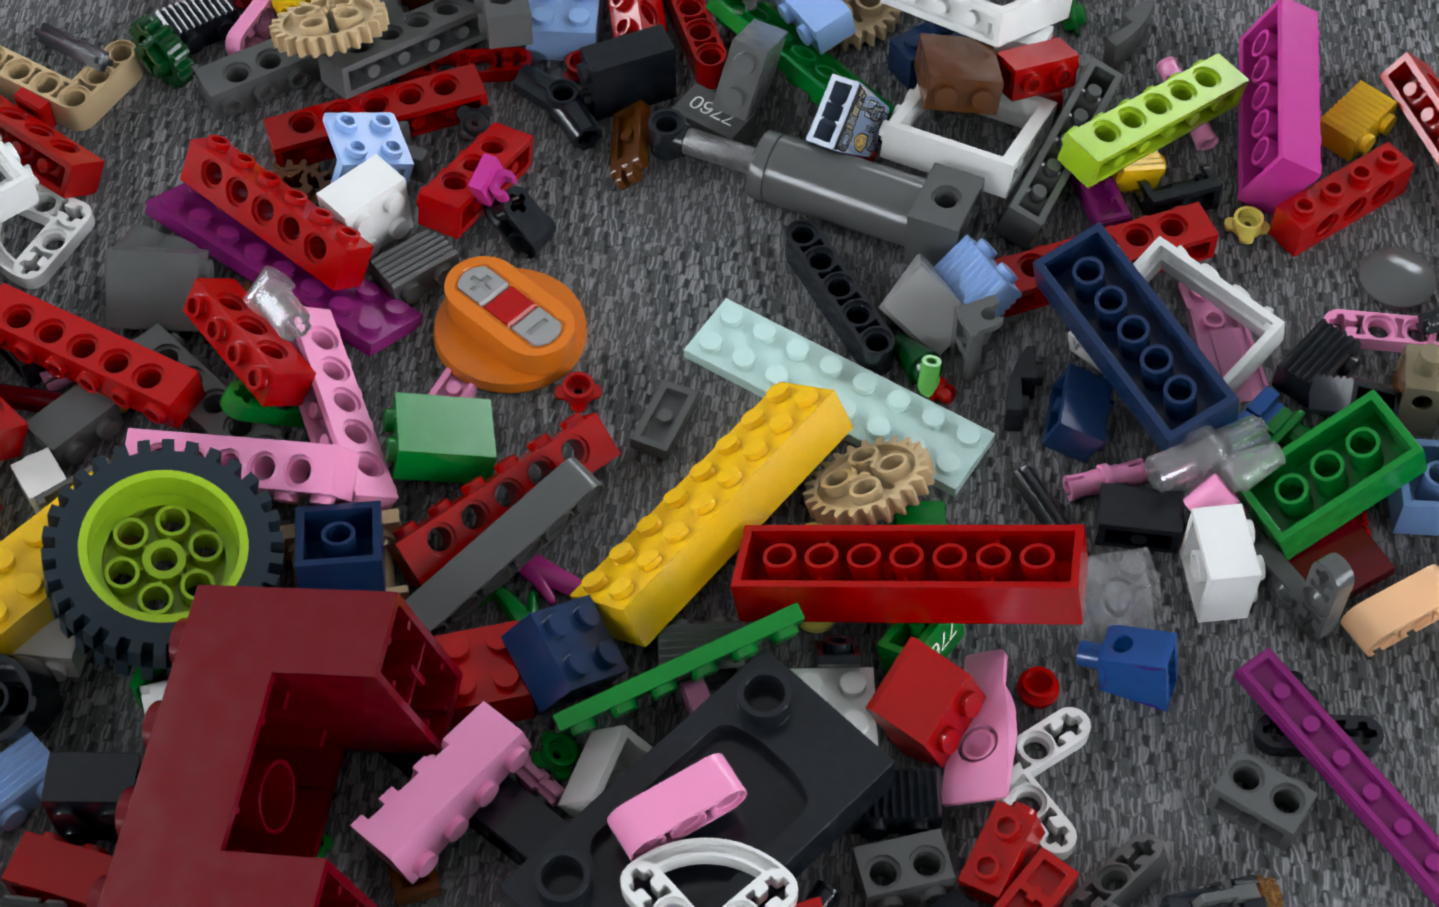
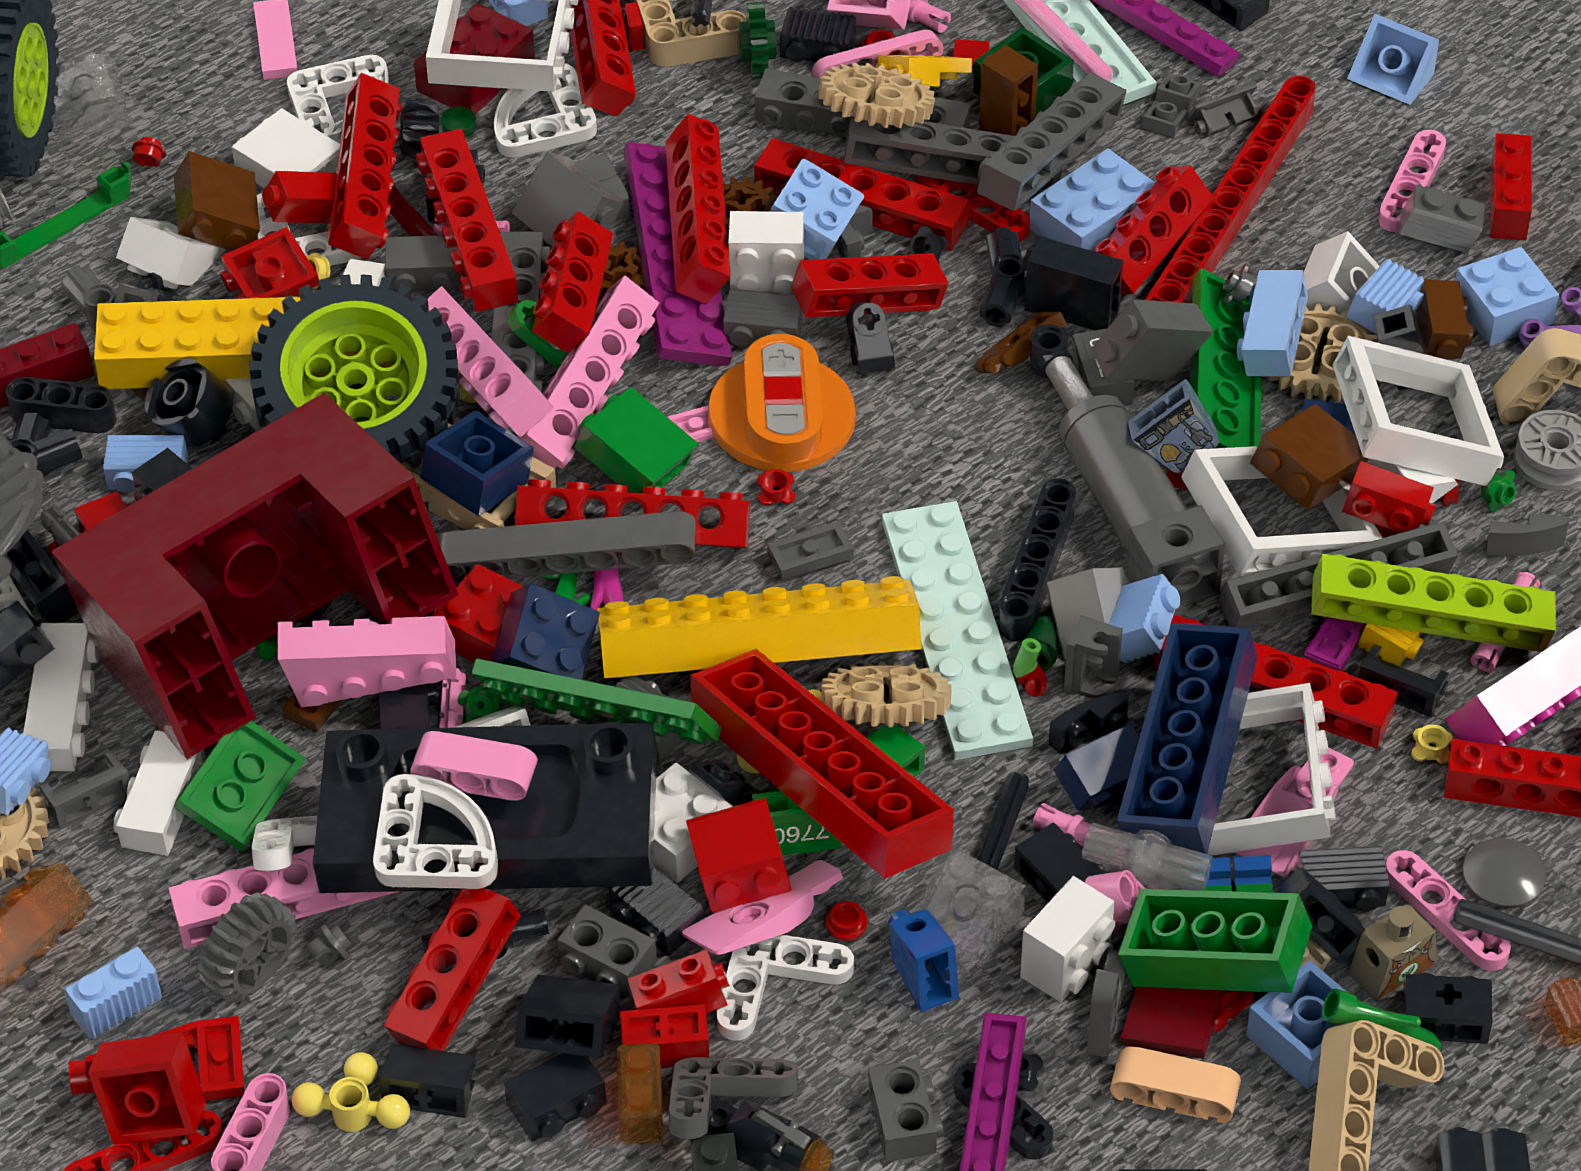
camera: 45 degrees right, 5 degrees down
(274, 300) = (612, 266): clear piece -> none
(488, 180) = (858, 286): dark pink tile -> none
(1250, 466) = (1152, 882): clear cone -> none

